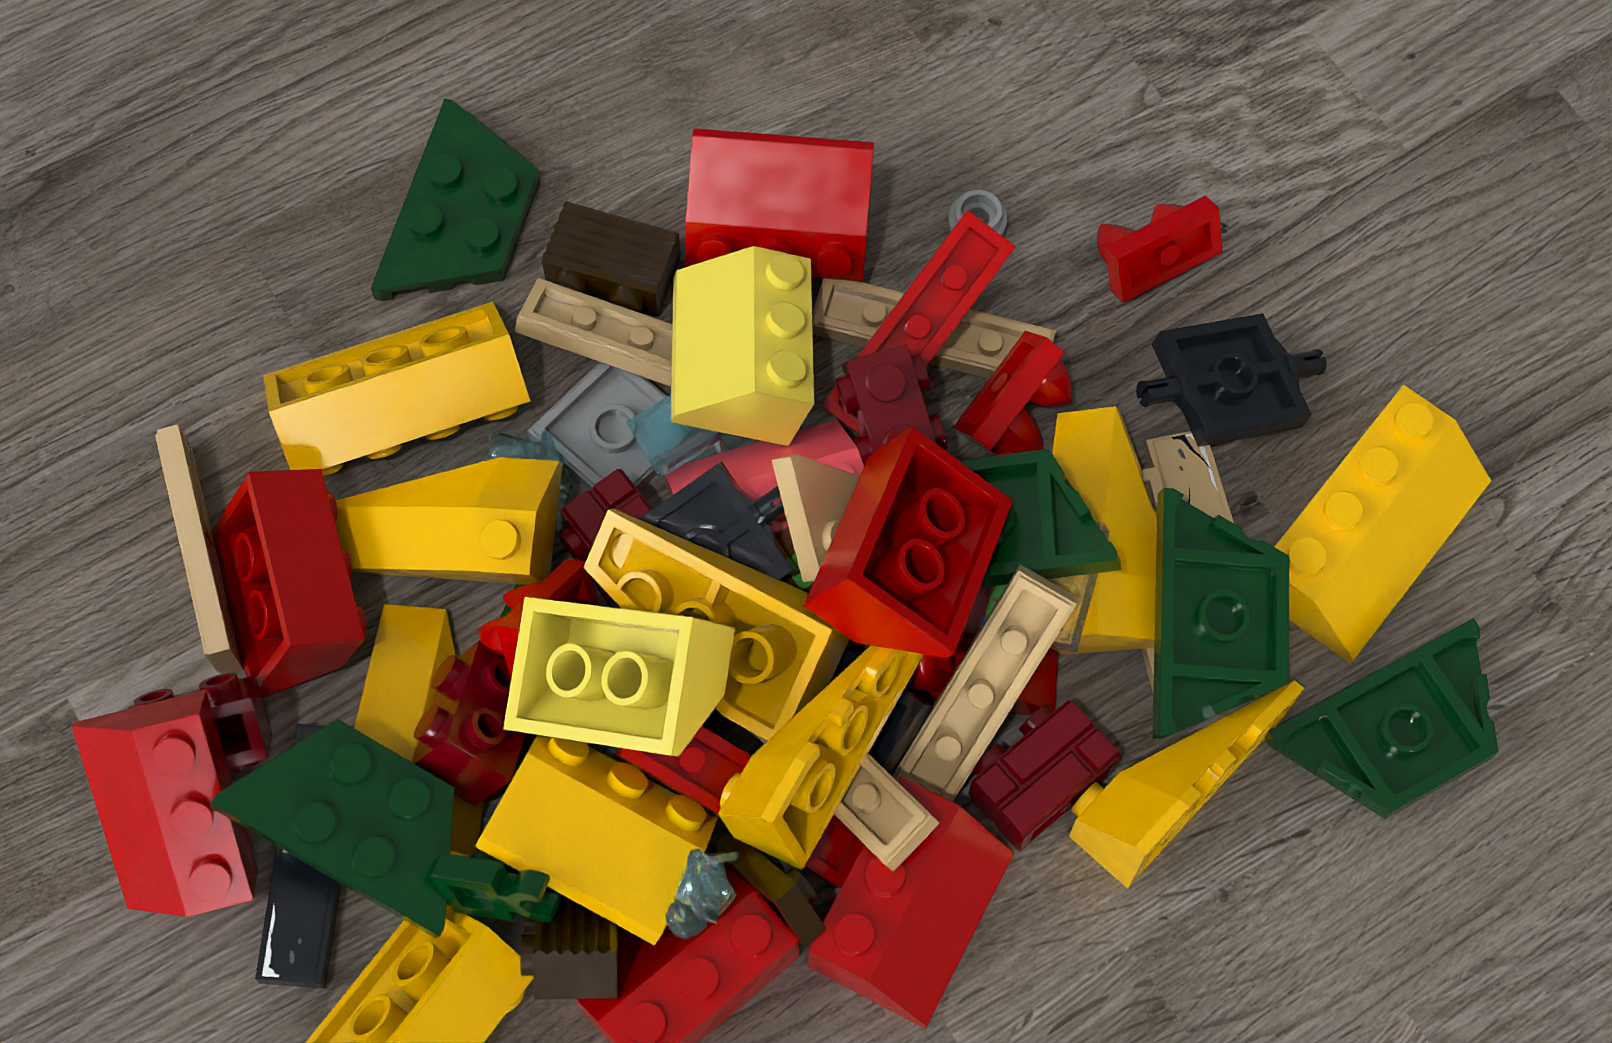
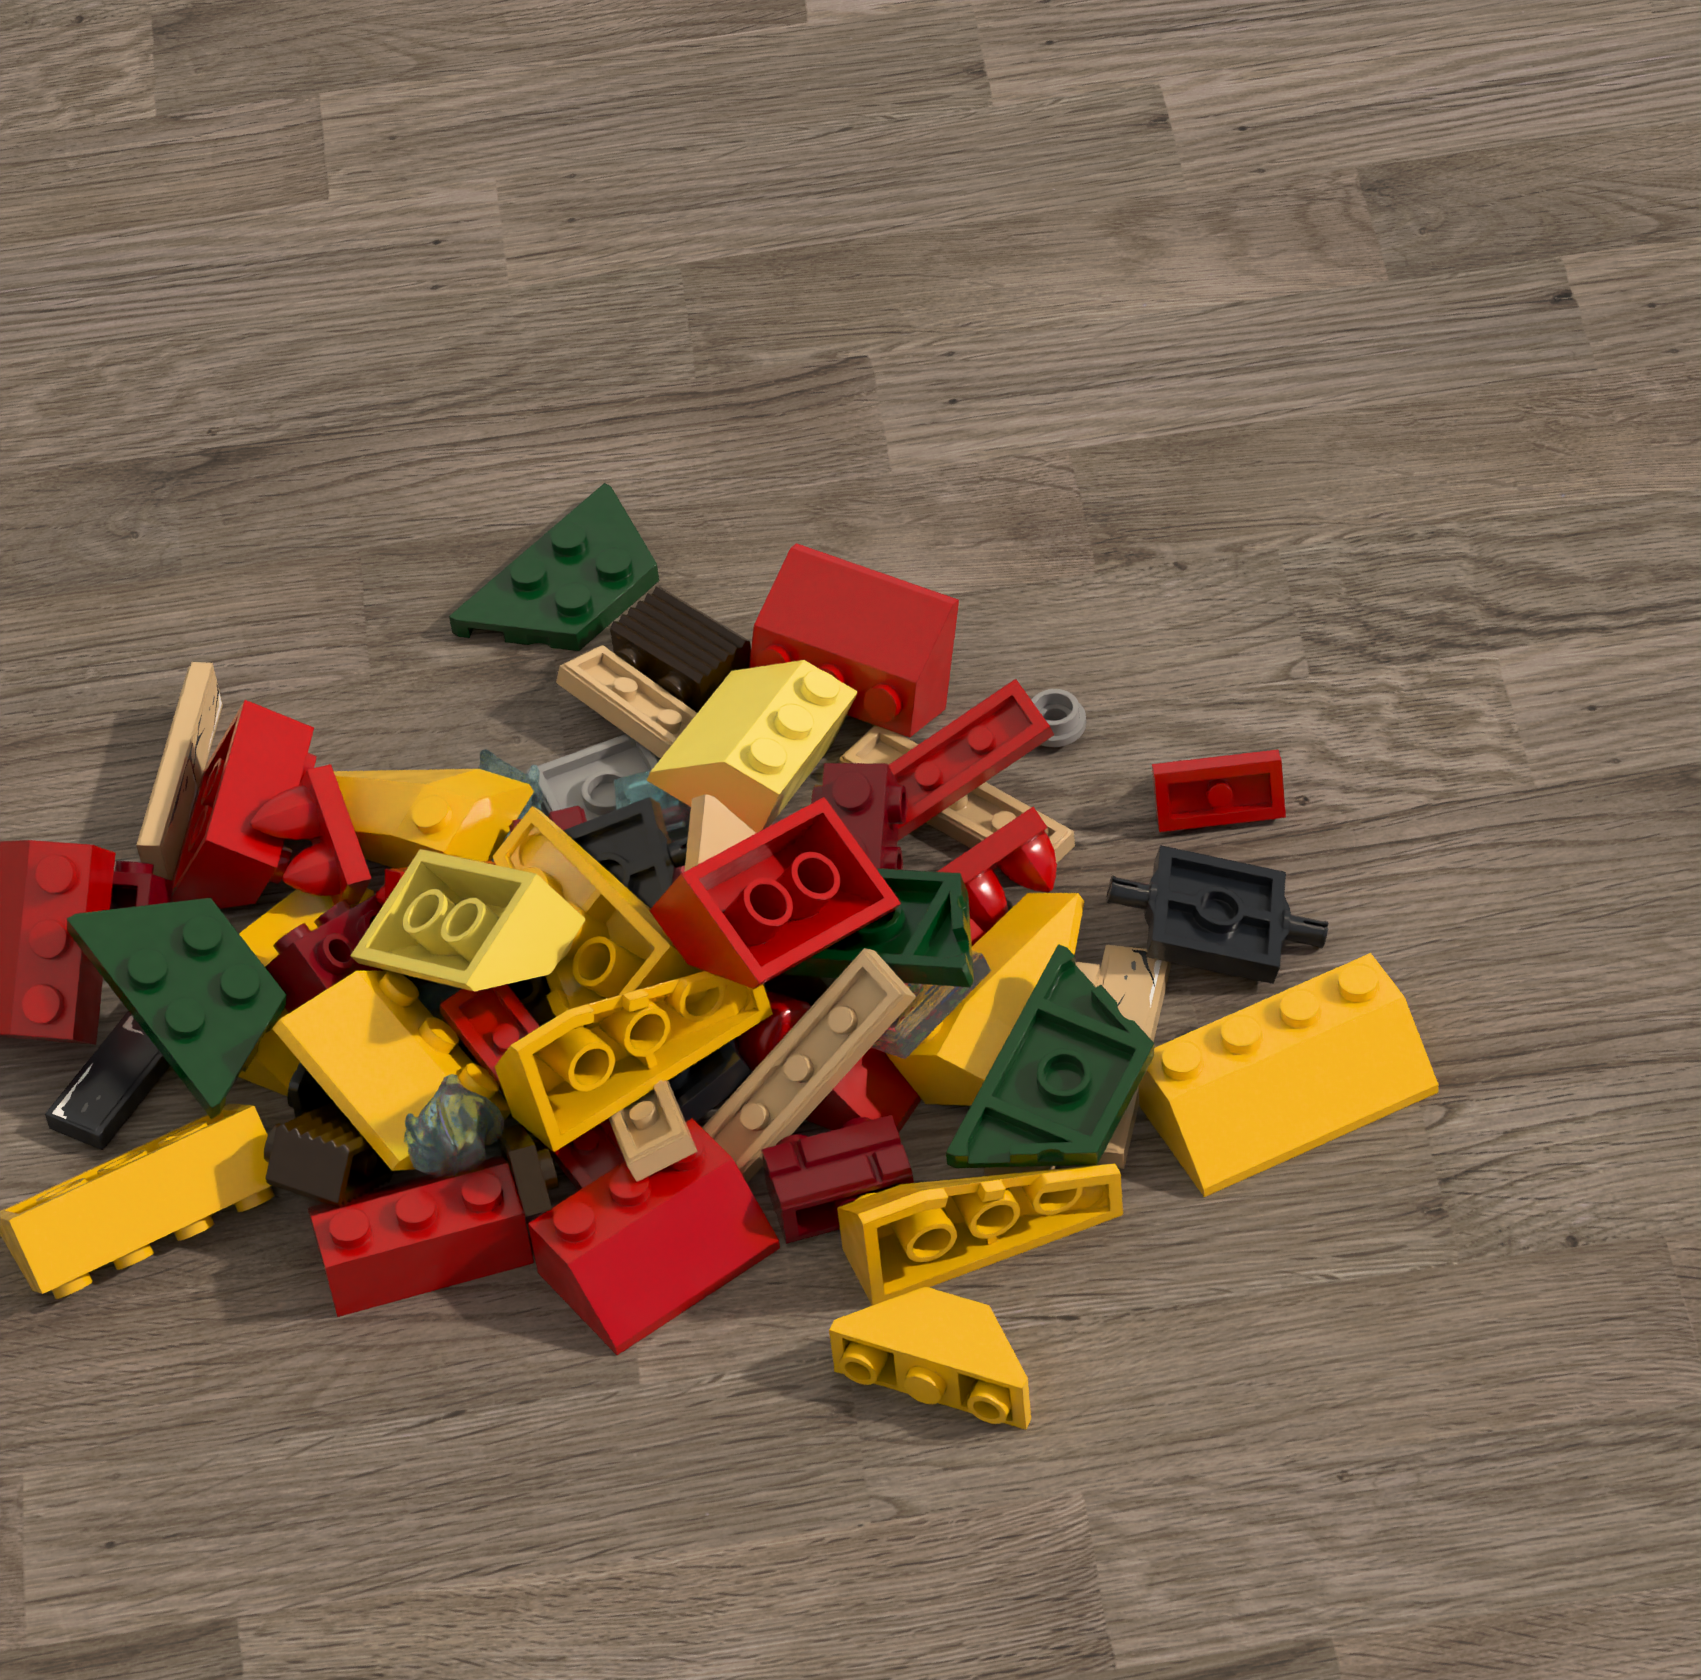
camera: 30 degrees right, 20 degrees down
(380, 569) = (318, 812): none -> red tile
(395, 390) = (424, 703): yellow slope -> none
(485, 889) = (269, 1077): dark green plate -> none
(1233, 927) = (937, 1353): none -> yellow slope
(1399, 727) = (1211, 1250): dark green wing -> none

